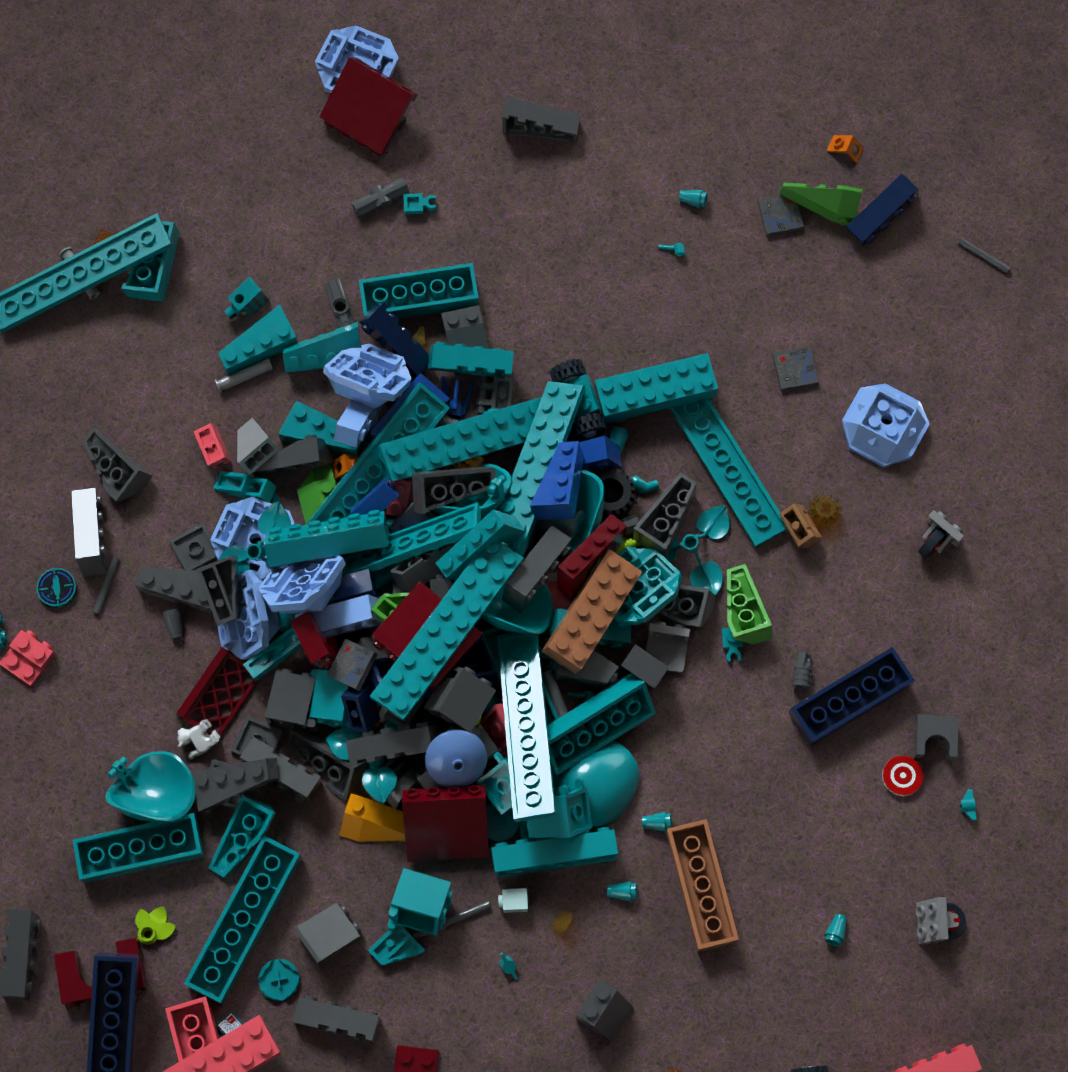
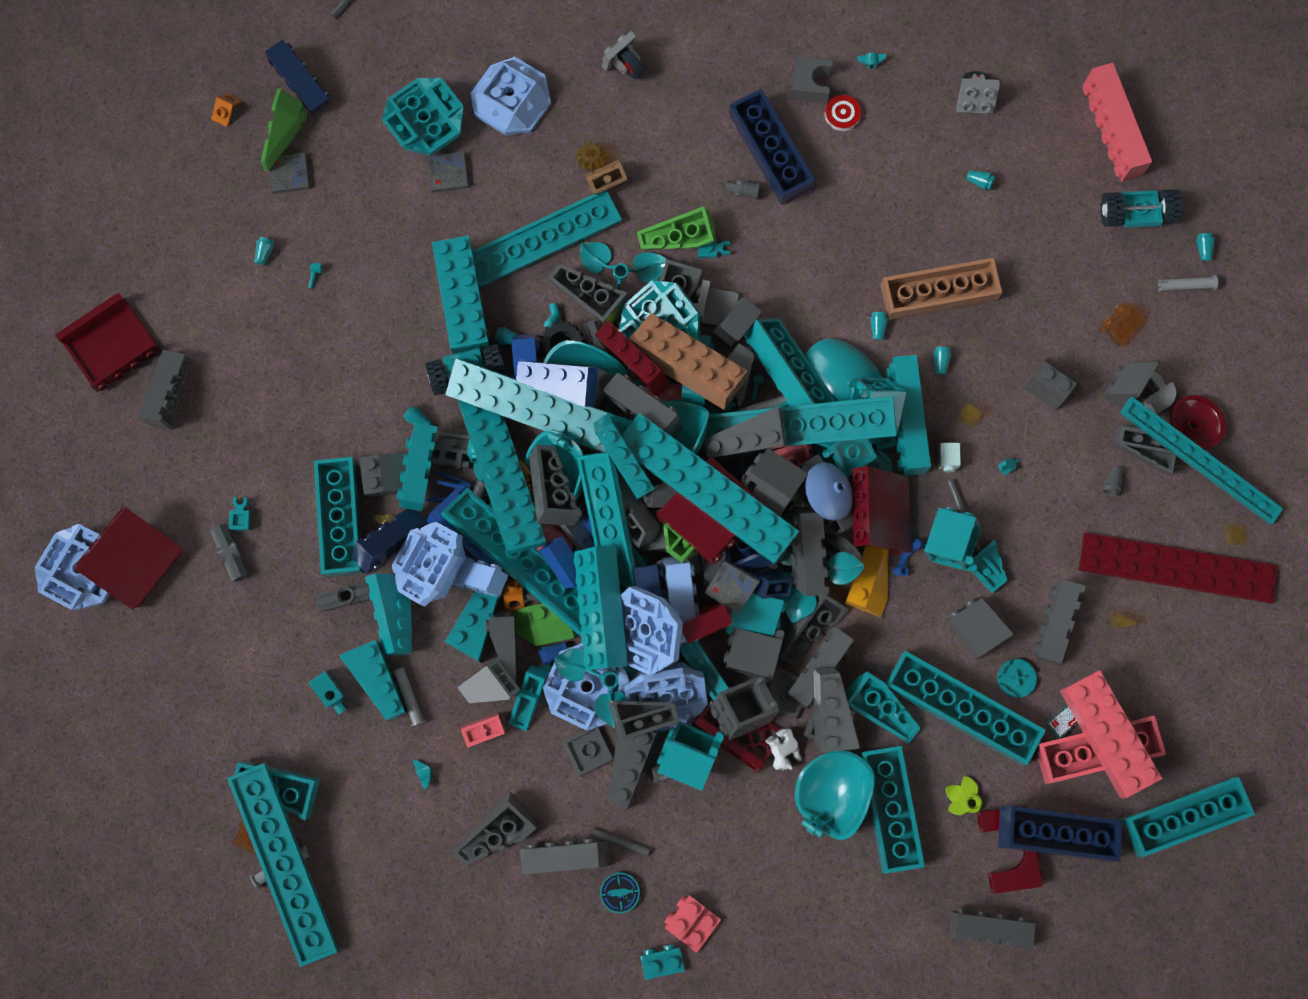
camera: 85 degrees left, 5 degrees up
(169, 394) = (423, 772): none -> teal piece
(188, 641) = (689, 755): none -> teal container
(238, 696) = (744, 708): none -> dark grey container
(290, 503) = (549, 652): none -> blue cone
(415, 866) = (901, 569): none -> blue piece
(512, 682) = (749, 436): none -> dark grey wedge
(526, 359) = (414, 415): none -> teal cone
(587, 66) = (108, 342): none -> dark red panel
(852, 318) = (424, 99): none -> teal piece

